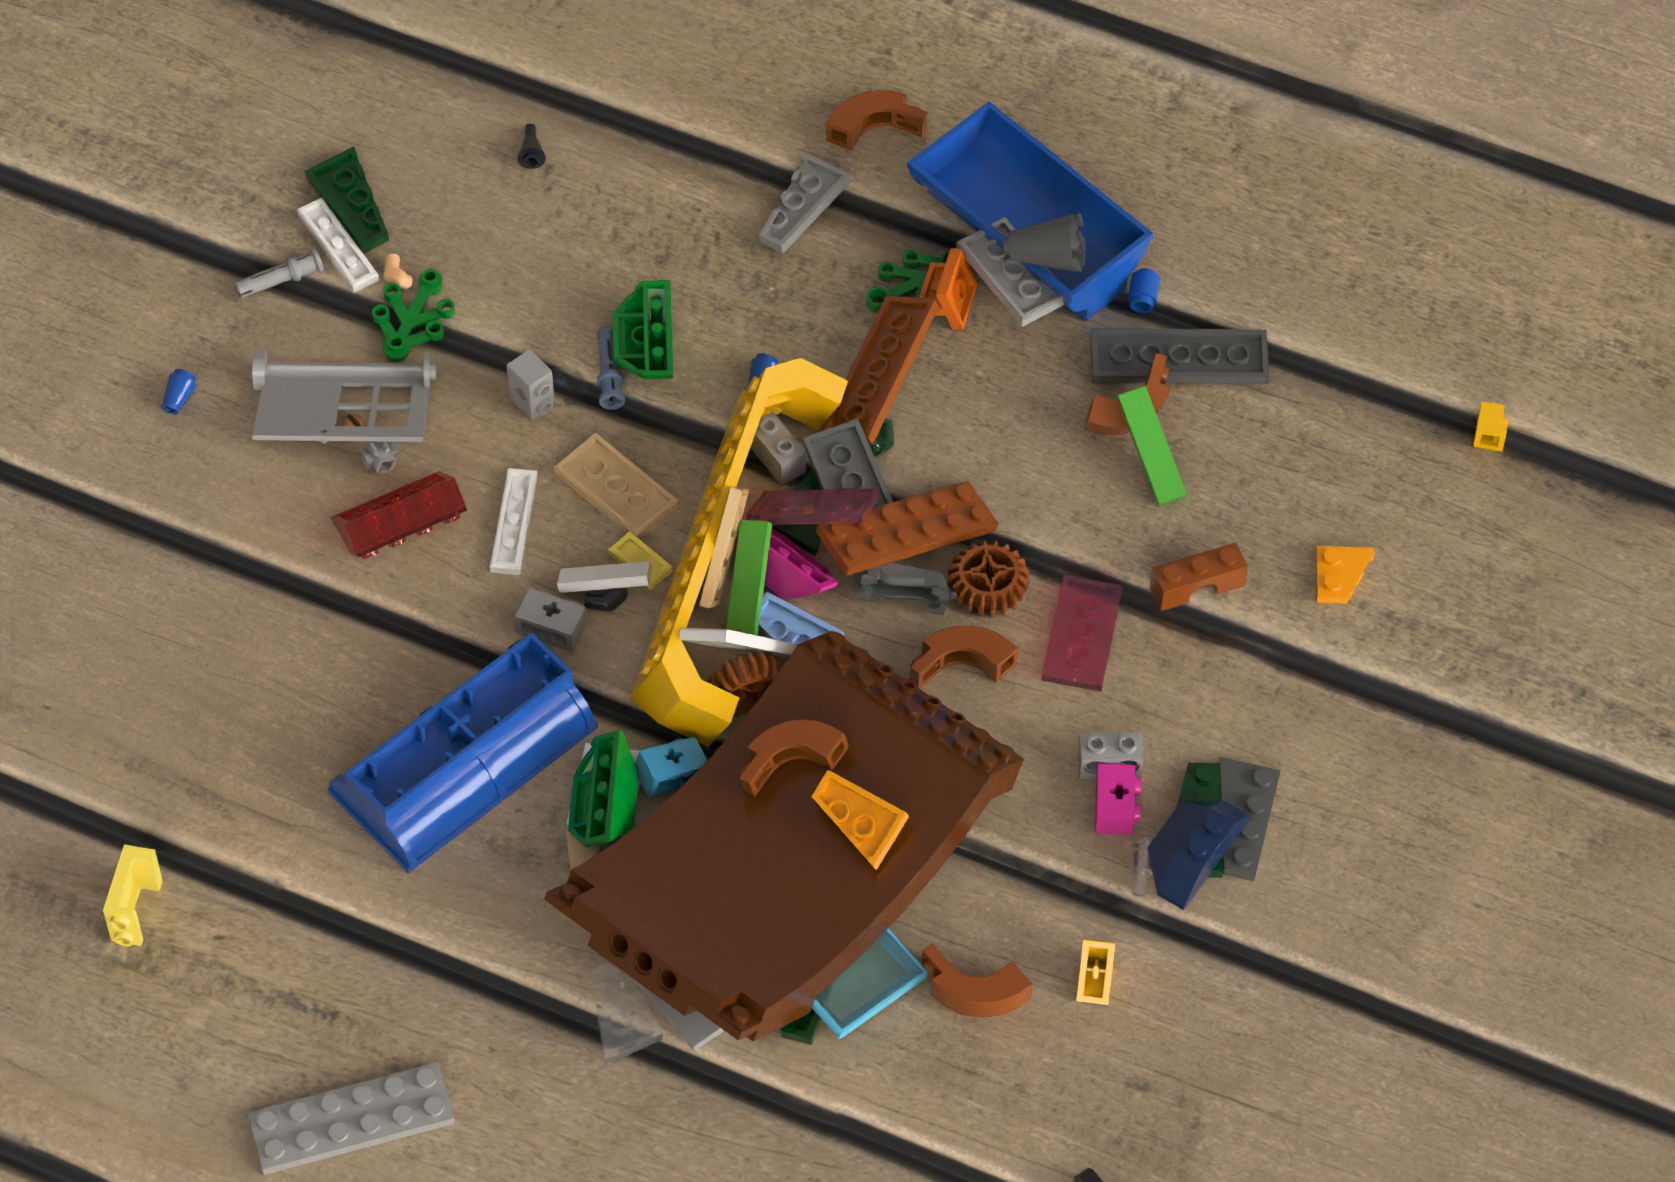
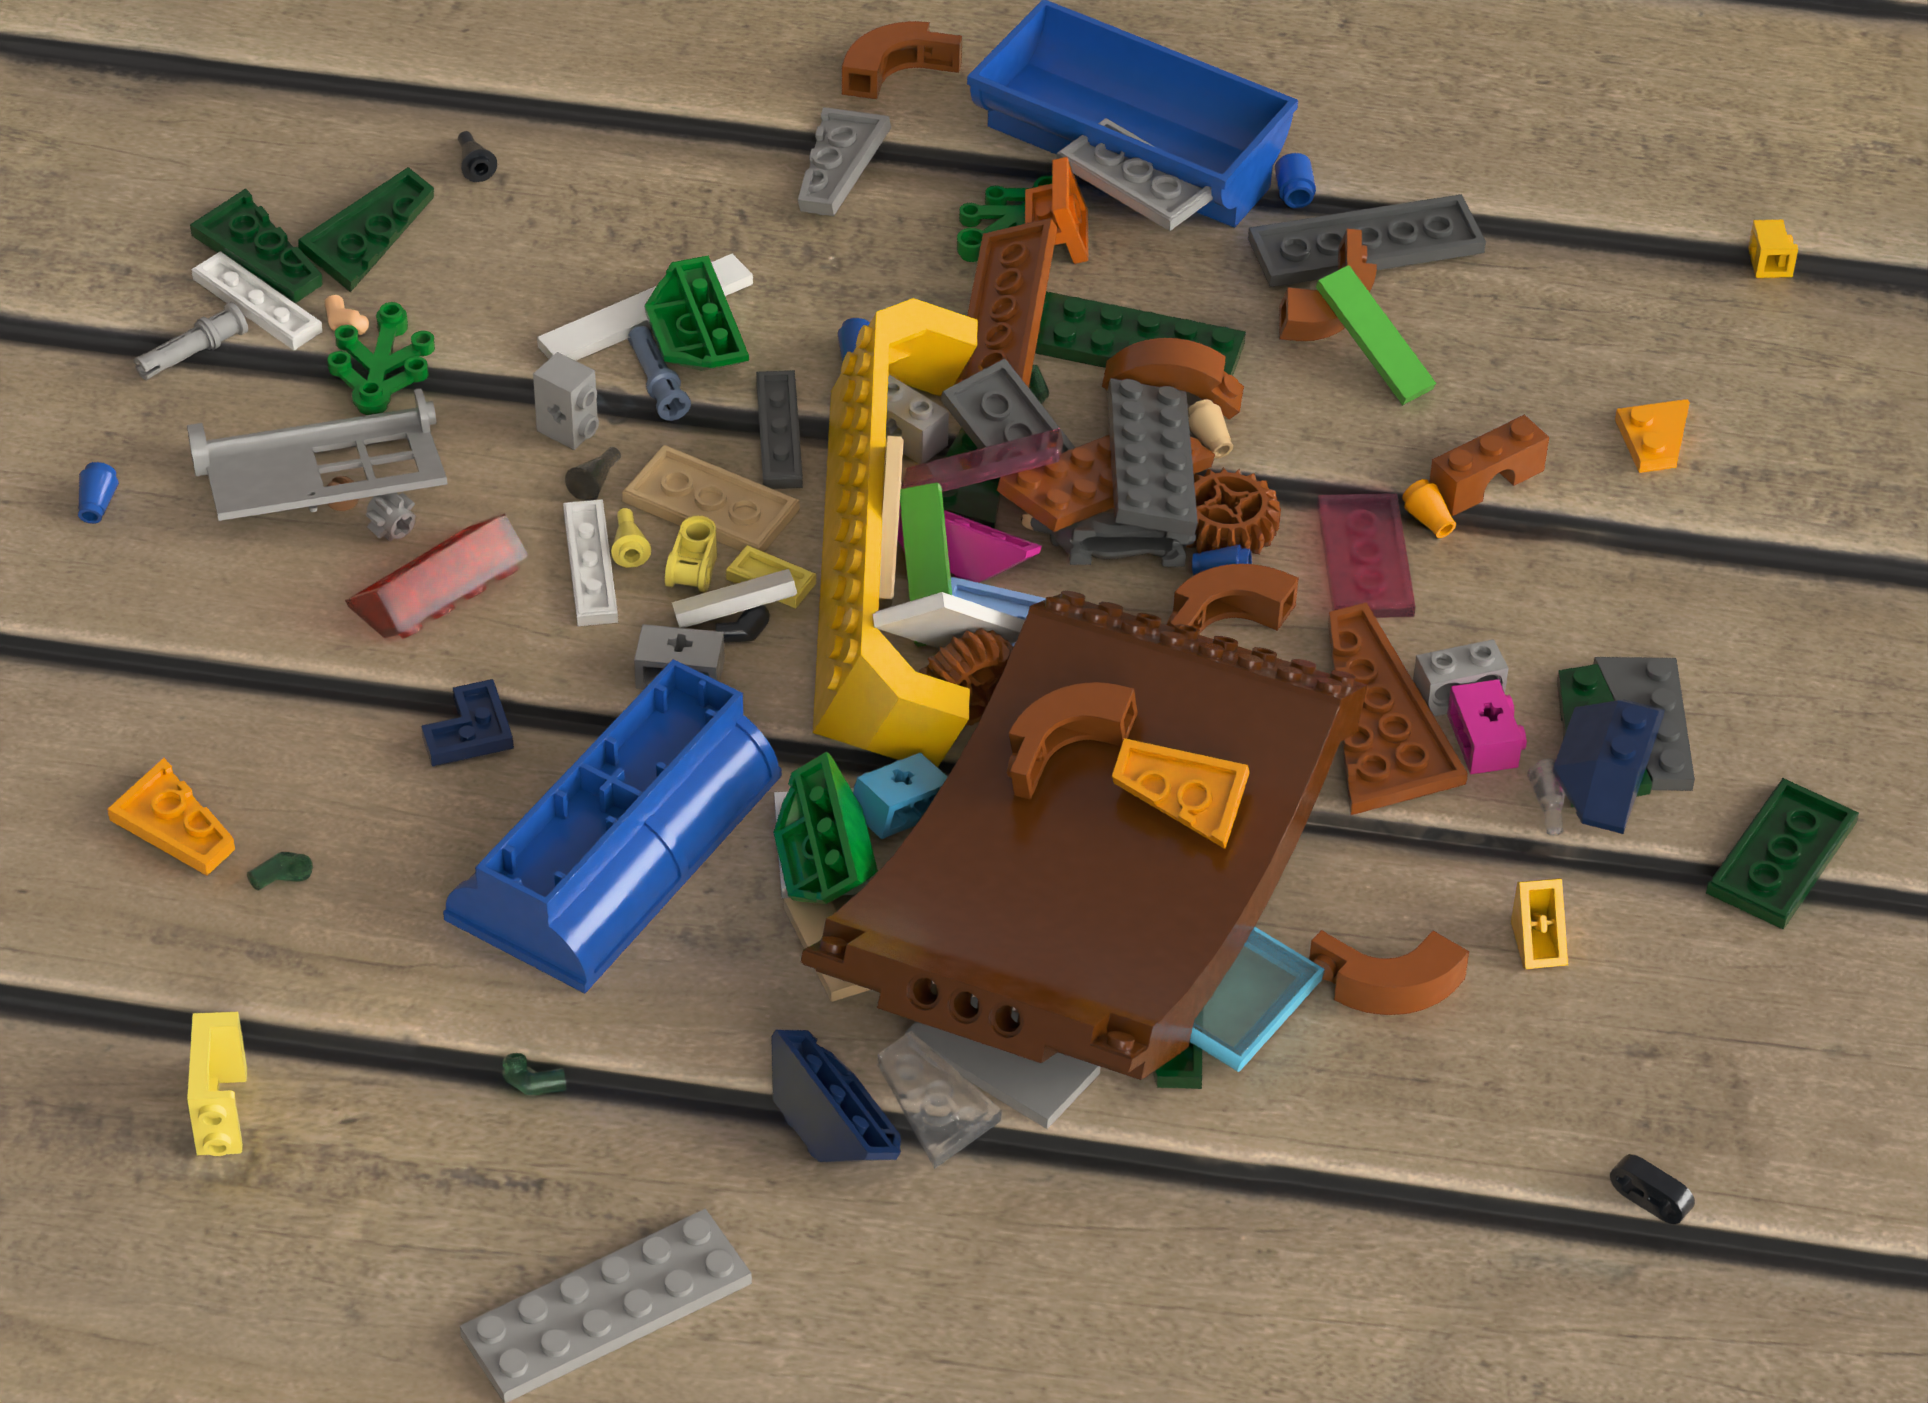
camera: 15 degrees left, 10 degrees down
(161, 675) = (170, 818): none -> light orange wing
(225, 728) = (282, 866): none -> clear green arm
(348, 935) = (529, 1081): none -> clear green arm
(392, 648) = (477, 731): none -> dark blue plate
(430, 200) = (365, 230): none -> dark green wing
(531, 451) = (588, 478): none -> clear smoke cone
(544, 515) = (630, 545): none -> light yellow cone
(546, 1002) = (828, 1103): none -> dark blue wedge
(586, 538) = (693, 554): none -> light yellow piece
(599, 314) = (616, 321): none -> white tile
(684, 435) = (779, 429): none -> dark grey tile
(941, 524) = (1151, 457): none -> dark grey plate
(971, 617) = (1219, 557): none -> blue cone
(975, 411) = (1096, 331): none -> dark green plate
(990, 446) = (1179, 365): none -> dark orange arch
(1002, 500) = (1209, 427): none -> tan cone
(1047, 793) = (1398, 741): none -> dark orange wing
(1049, 244) = (1181, 122): dark grey cone -> none
(1142, 603) = (1427, 505): none -> light orange cone
(1299, 948) = (1782, 853): none -> dark green tile

